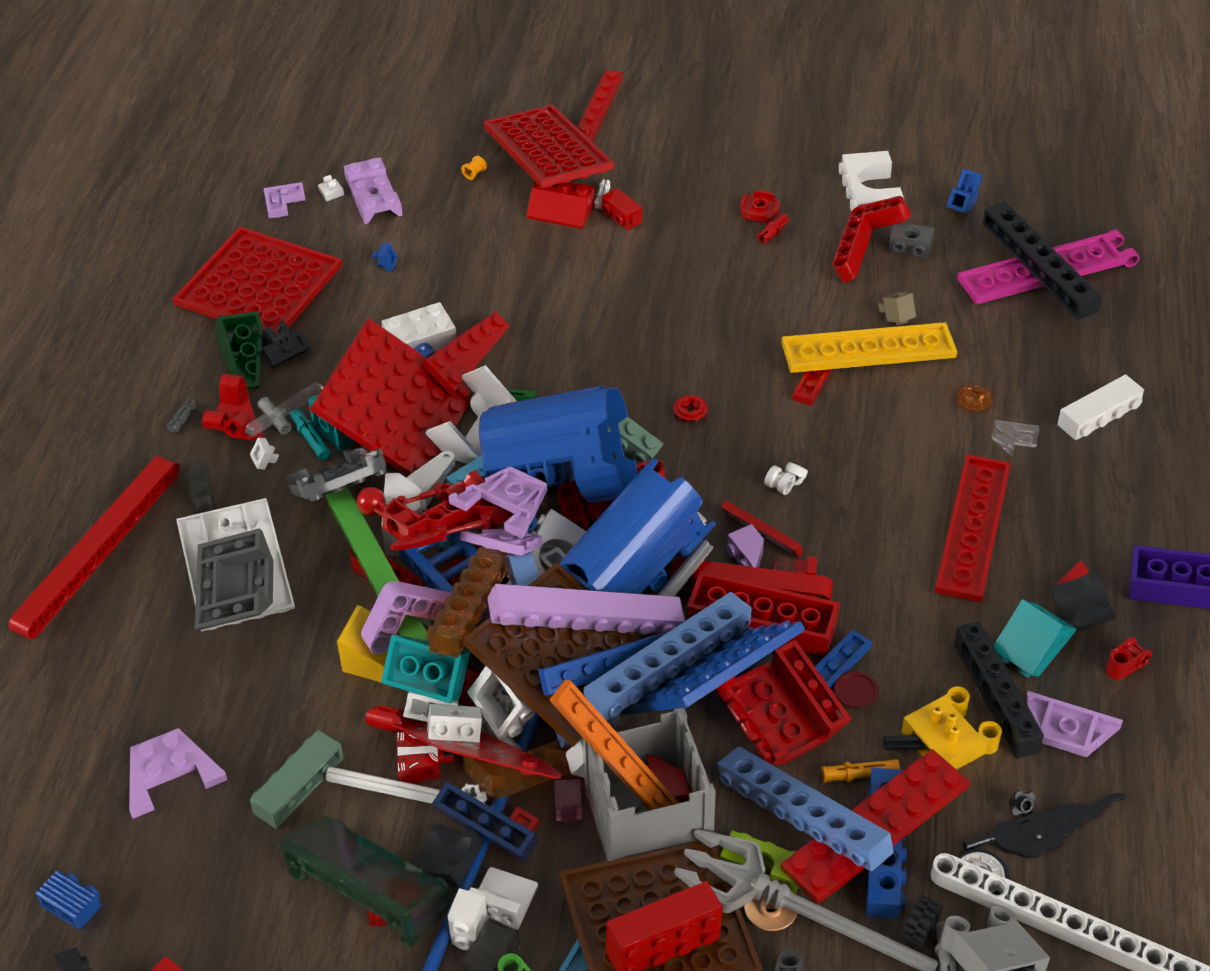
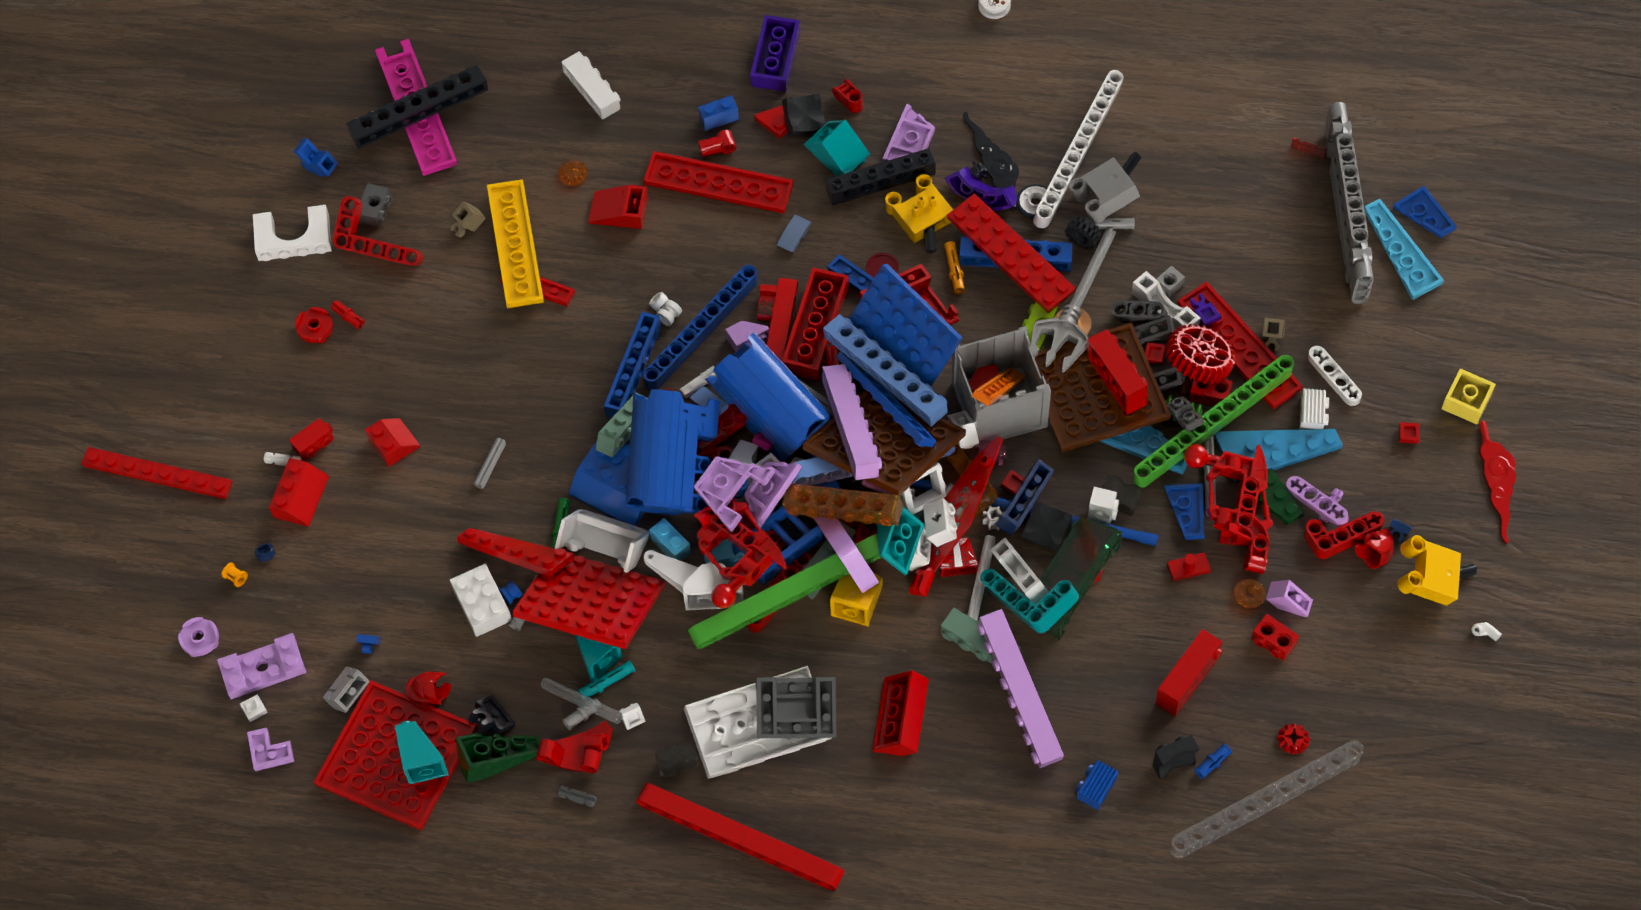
camera: 90 degrees left, 15 degrees up
(163, 760) = (963, 744): lavender wing -> none
(210, 808) = (1020, 689): none -> lavender brick
(211, 695) = (900, 714): none -> red slope
(243, 280) = (418, 755): none -> teal slope
(304, 817) = (1037, 616): none -> teal beam
(321, 298) = (425, 690): none -> red helmet
(333, 241) = (346, 689): none -> light grey brick
(354, 469) = (675, 639): dark grey plate -> none
(402, 809) = (1019, 571): none -> white arch
(407, 157) = (202, 646): none -> lavender plate
(497, 186) = (265, 552): none -> dark blue tile
(506, 896) = (1074, 491): white bracket -> none
(548, 146) = (219, 502): red plate -> none
(588, 339) = (489, 463): none -> light grey axle
(618, 263) = (391, 440): none -> red slope
(683, 404) = (575, 375): red gear -> none
(708, 445) = (633, 363): none -> blue brick
(725, 486) = (697, 334): none -> blue beam
(764, 529) = (723, 325): red tile -> none
(806, 808) = (1006, 282): medium blue brick -> none
(906, 600) = (794, 233): none -> sand blue slope
(925, 437) = (619, 206): none -> red slope
(987, 800) = (965, 184): none -> dark purple brick
(1010, 433) = (622, 148): clear slope -> none
(1031, 527) = (722, 142): none -> red piece
(1076, 522) = (718, 113): none -> blue brick

